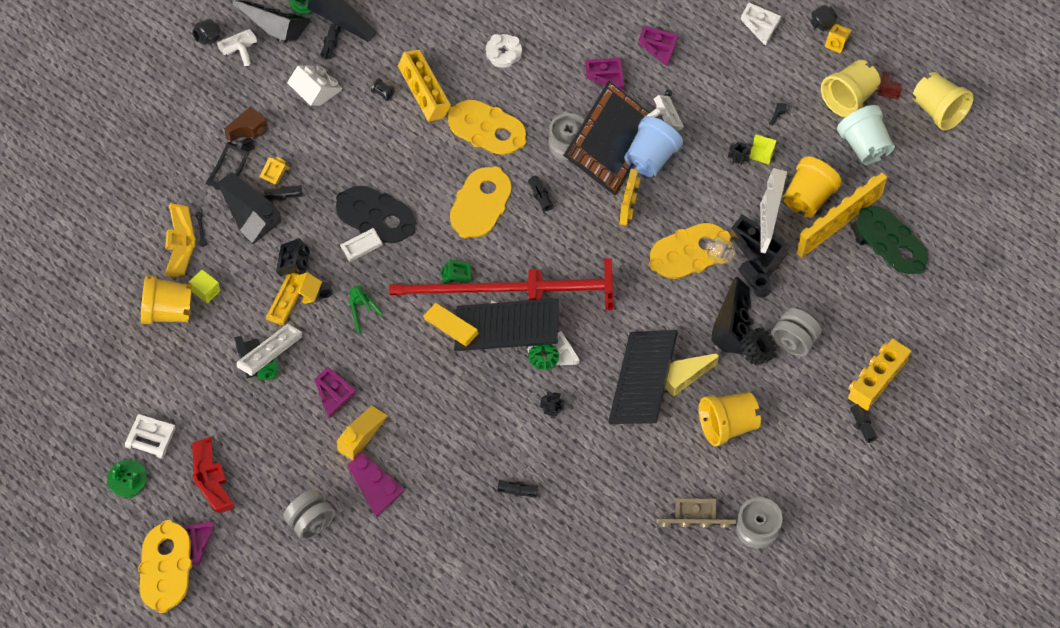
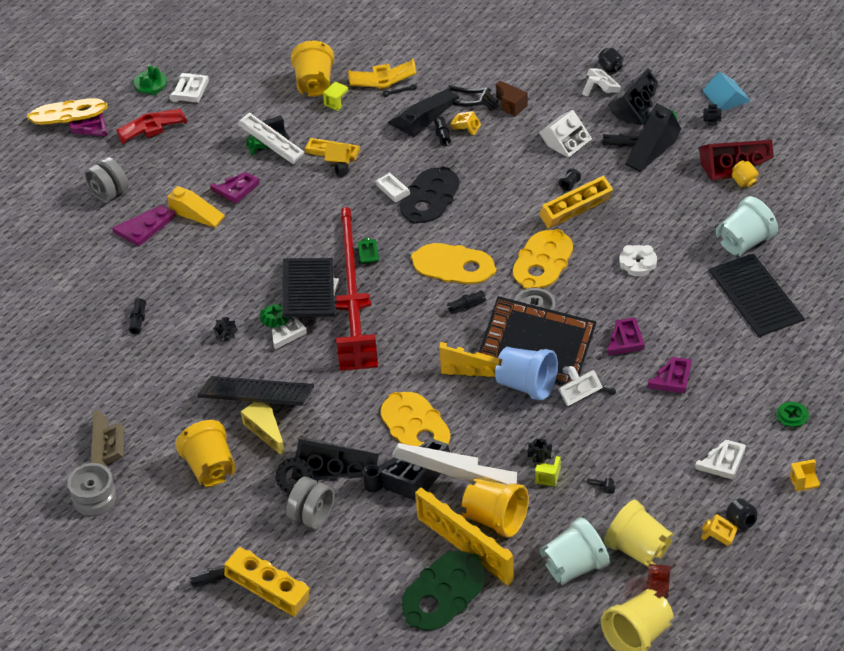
camera: 90 degrees right, 15 degrees down
(293, 257) = (369, 145): black bracket -> none
(360, 297) = (335, 190): green plant -> none
(451, 324) = (308, 252): yellow tile -> none
(720, 250) = (411, 435): clear head -> none

